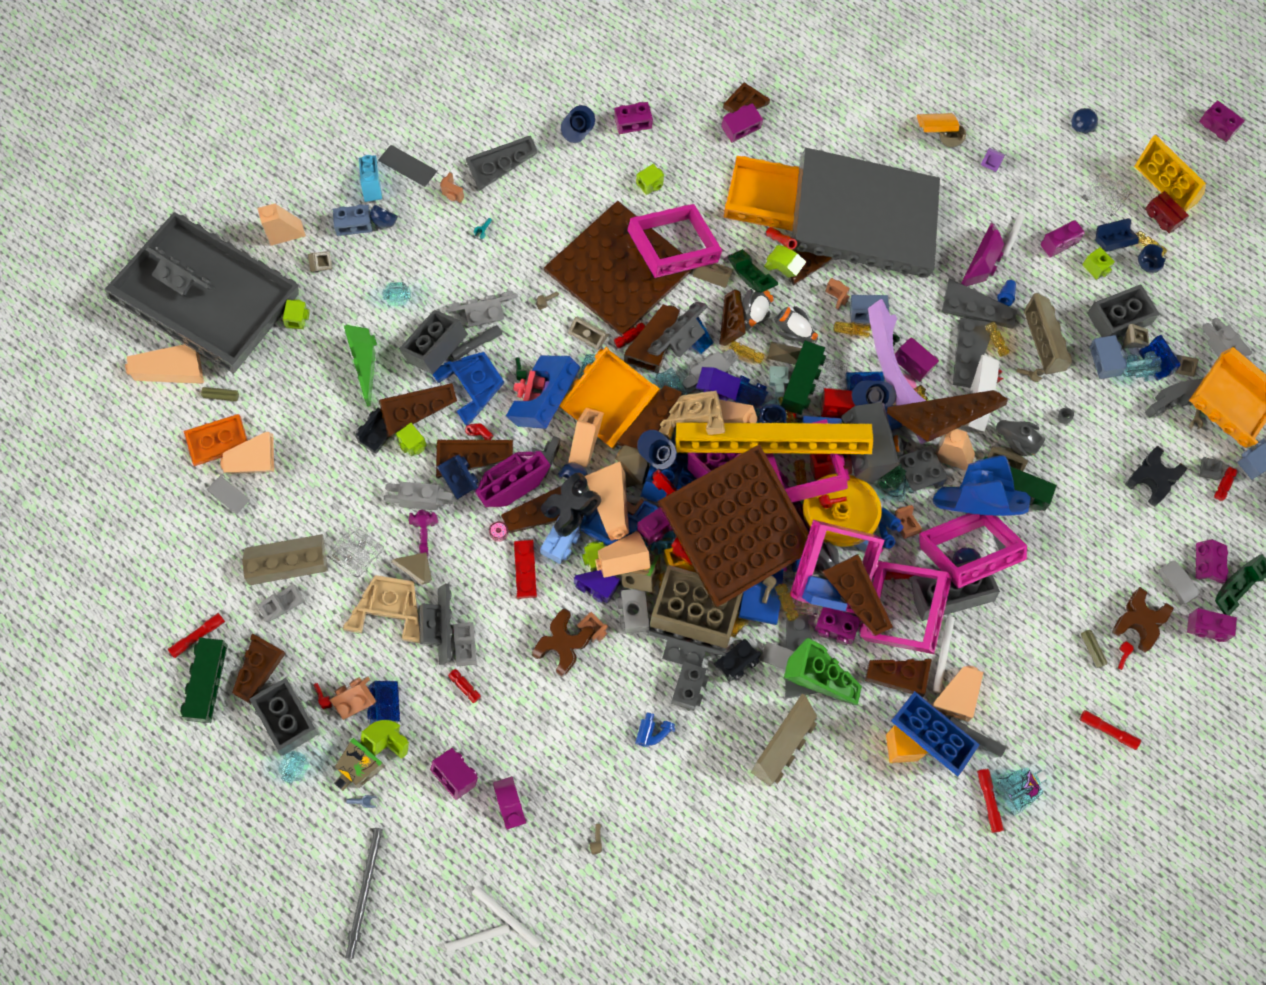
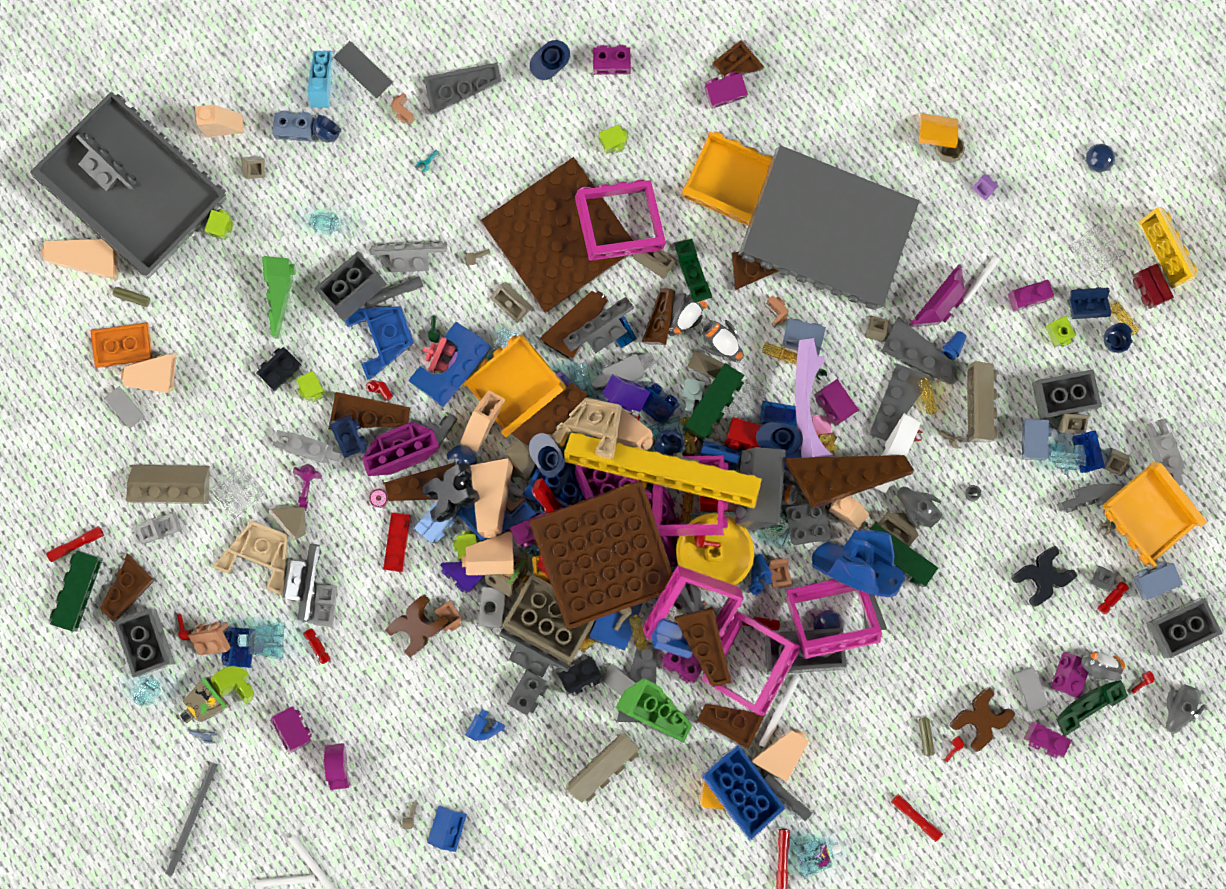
camera: 15 degrees right, 15 degrees up
(410, 688) = (264, 640): none -> clear light blue torso
(415, 406) = (319, 352): reddish brown wing -> none
(629, 336) = (552, 314): red axle -> none
(638, 843) = (447, 829): none -> blue panel
(747, 352) = (667, 357): clear yellow axle -> none
(785, 240) = (733, 246): red piece -> none
(785, 261) = (729, 267): lime brick -> none
(932, 293) = (877, 328): none -> dark tan slope
(1241, 544) = (1103, 666): none -> dark grey animal

